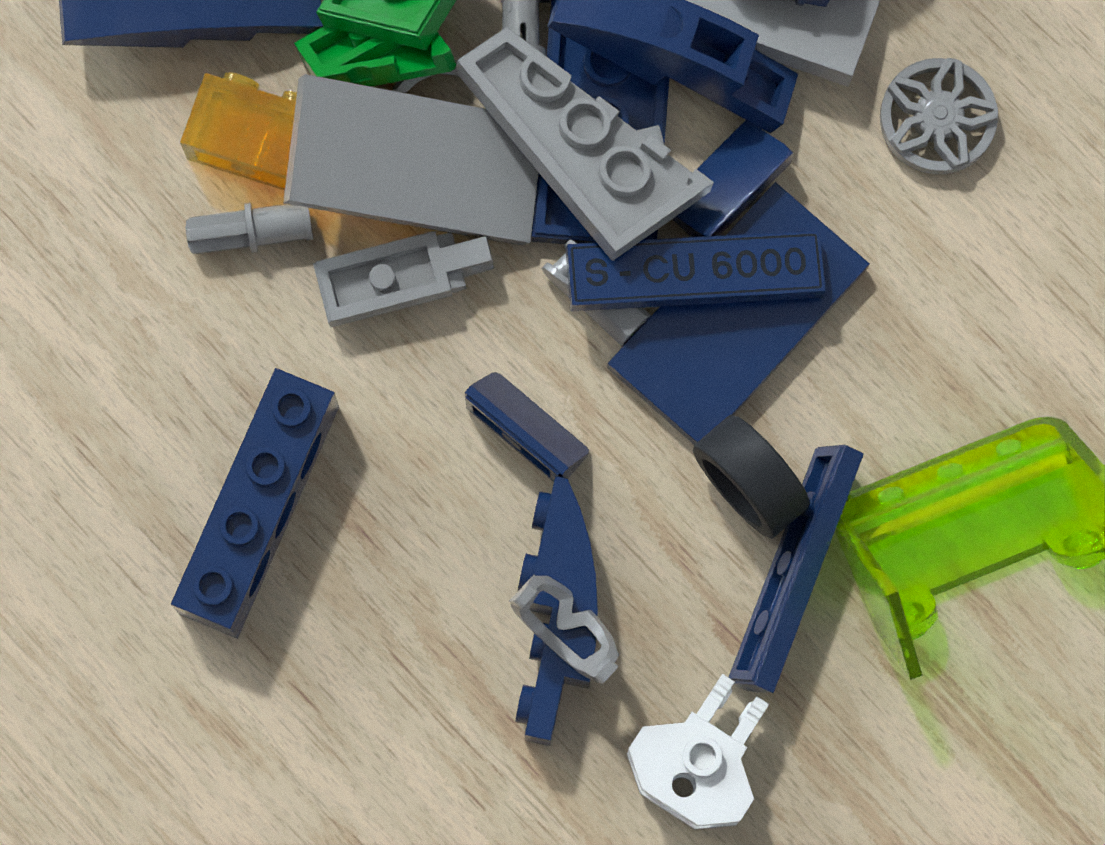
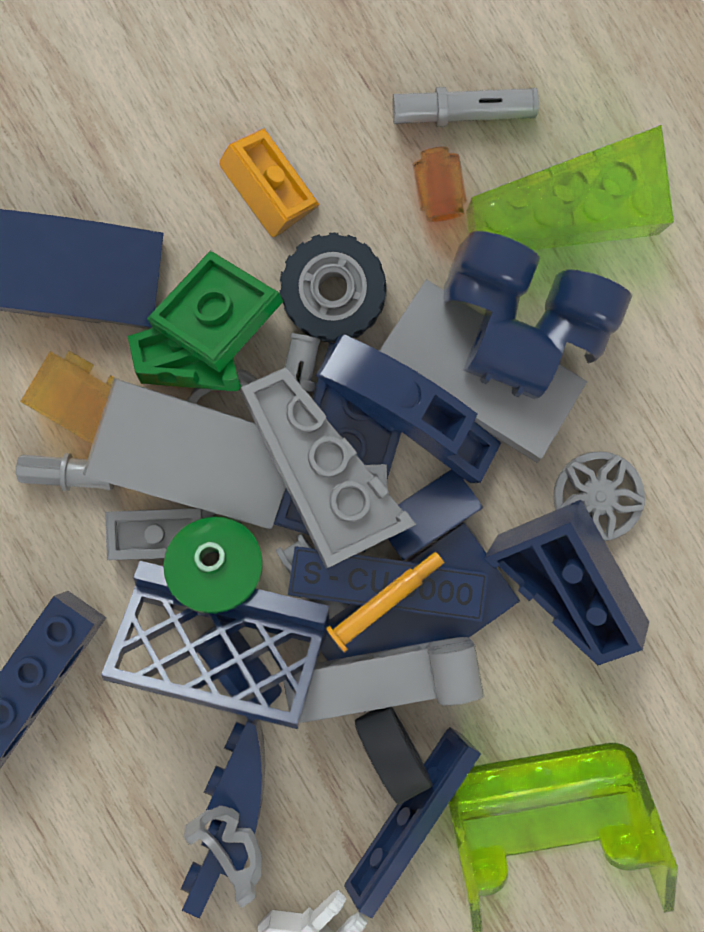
camera: 10 degrees right, 10 degrees up
(470, 308) = (216, 586): none -> green dish
(500, 342) = (261, 611): none -> fence
(693, 287) = (383, 601): none -> light orange piece
(737, 379) = (392, 678): none -> light grey beam
(931, 214) = (575, 579): none -> dark blue wedge

